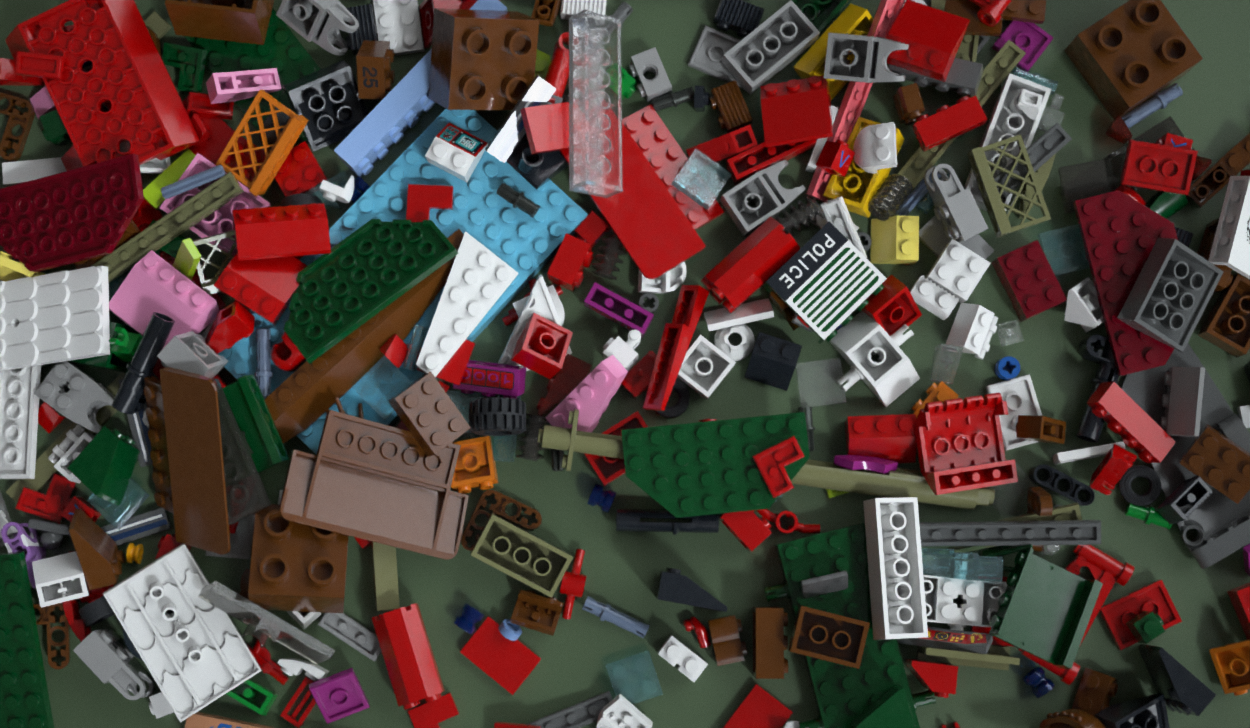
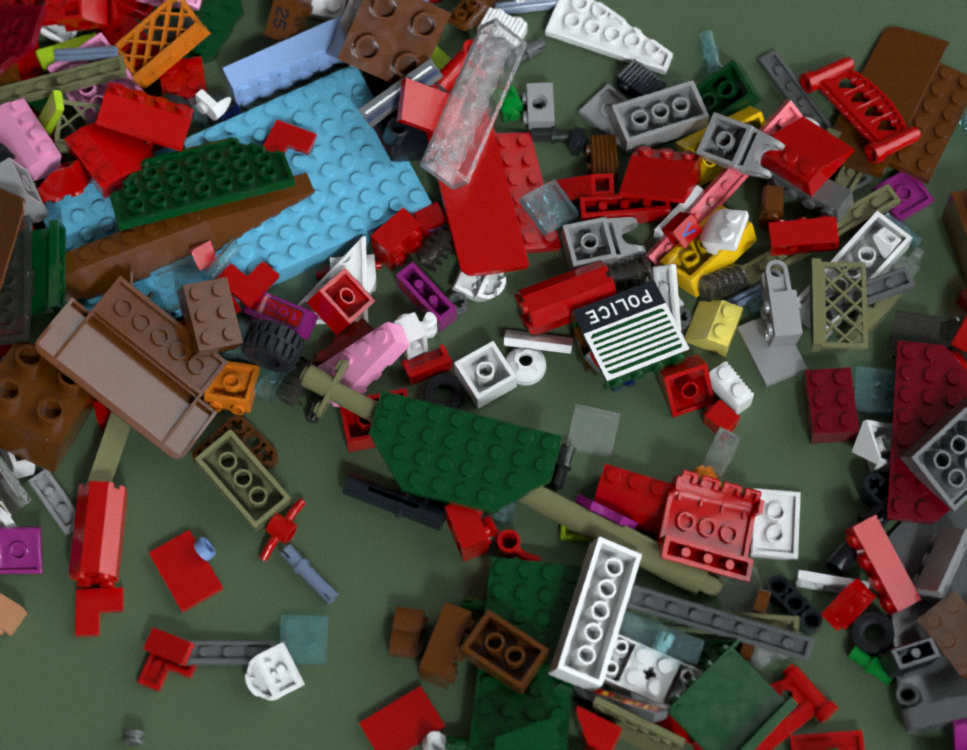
camera: 20 degrees right, 15 degrees down
(263, 370) = (76, 233): sand blue pin -> none
(286, 354) = (103, 224): red helmet -> none
(328, 102) = (235, 32): black slope -> none
(456, 151) = (330, 106): white slope -> none
(469, 617) = (170, 524): clear blue wheel -> none
(470, 292) = (290, 230): white wing -> none
(518, 199) = (371, 166): pearl dark grey axle -> none
(536, 612) = (236, 541): reddish brown bracket -> none
(601, 498) = (341, 460): clear blue wheel -> none
(674, 345) = (466, 341): red slope -> none
(677, 653) = (362, 639): white piece -> none
(683, 590) = (380, 564): black slope -> none
(700, 630) = (385, 615): red arm -> none
(772, 464) = (512, 468): red tile -> none
(773, 361) = (554, 393): black slope -> none
(824, 584) = (521, 605): flat silver slope -> none
(866, 337) = (661, 443): white slope -> none
(933, 330) = (720, 416): none -> red brick
(958, 270) = (763, 369): white brick -> none
(973, 329) = (757, 427): white brick -> none
(1002, 369) = (779, 483): blue wheel -> none
(1009, 332) = (795, 449): clear slope -> none
(1041, 429) = (791, 542): reddish brown slope -> none

